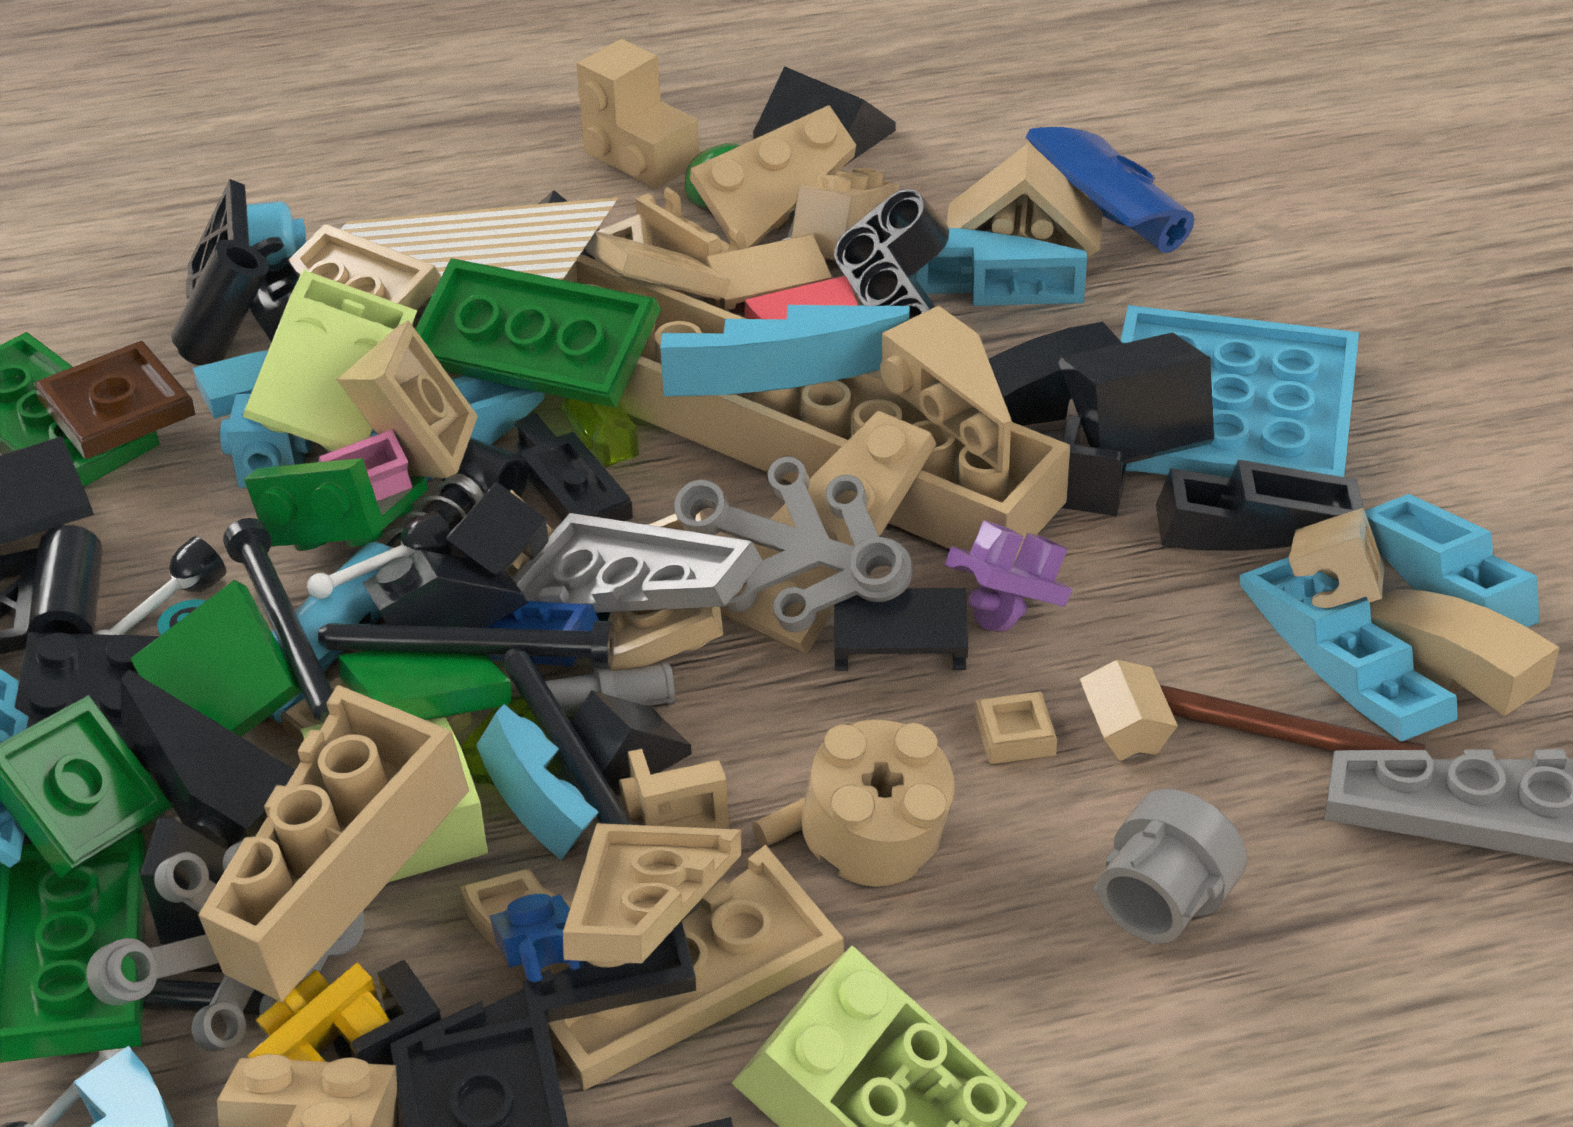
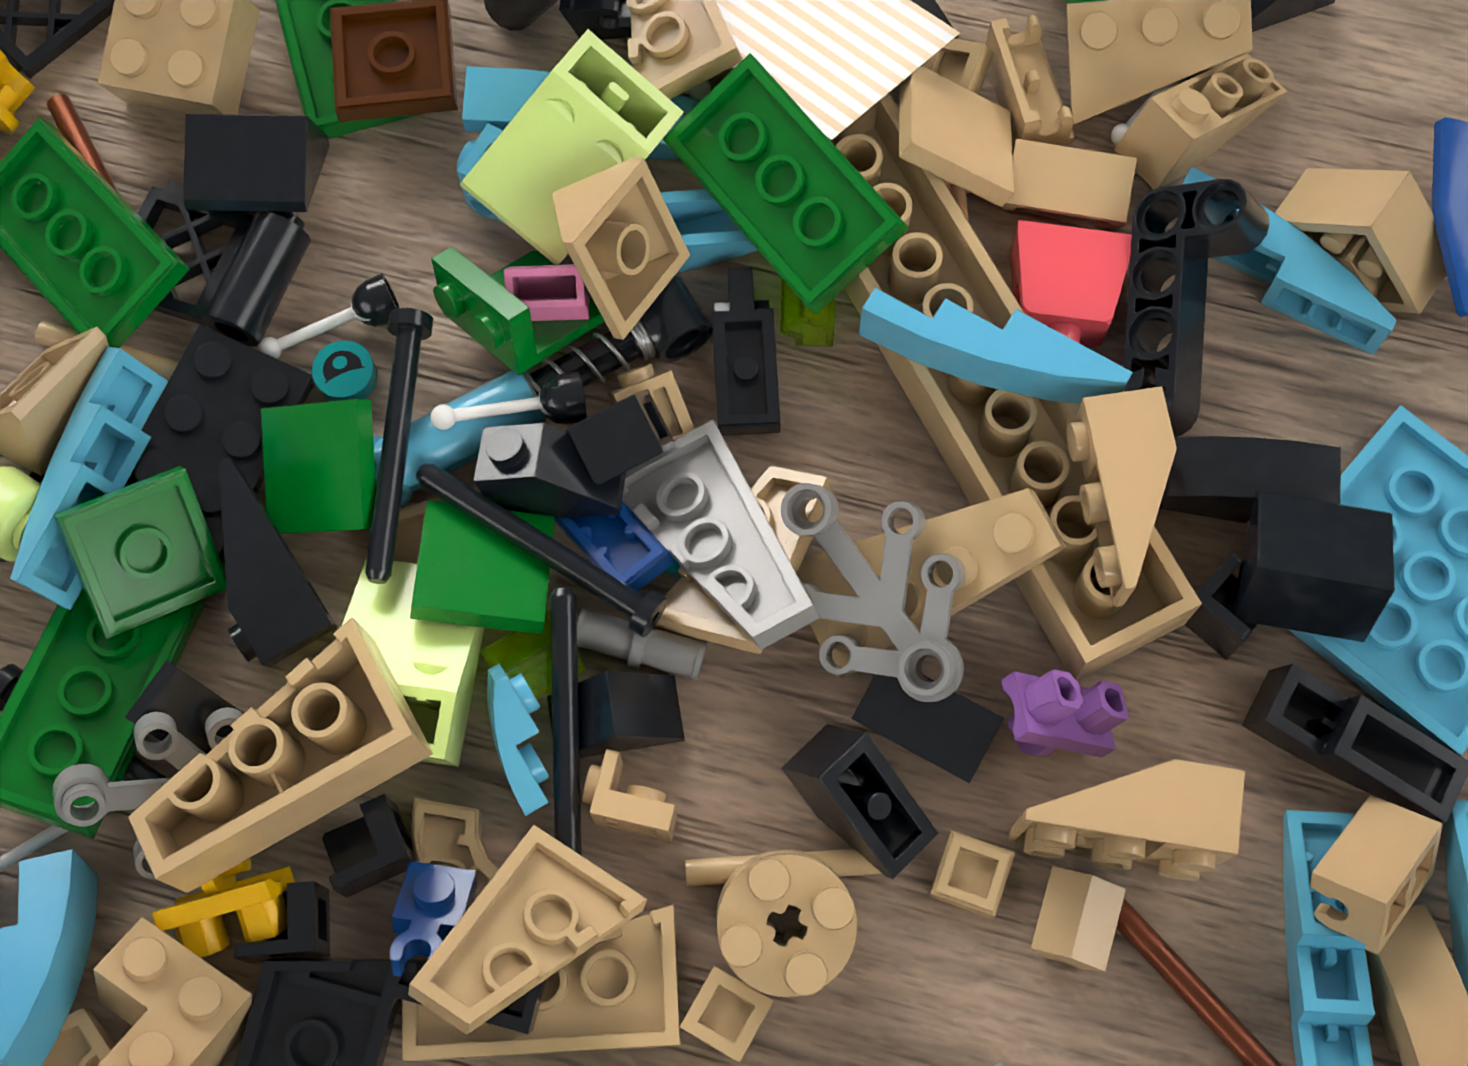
camera: 30 degrees right, 30 degrees up
(451, 936) = (369, 848): none -> black panel
(871, 906) = (726, 1014): none -> tan plate
(874, 681) = (860, 798): none -> black slope
(1129, 597) = (1163, 816): none -> tan slope

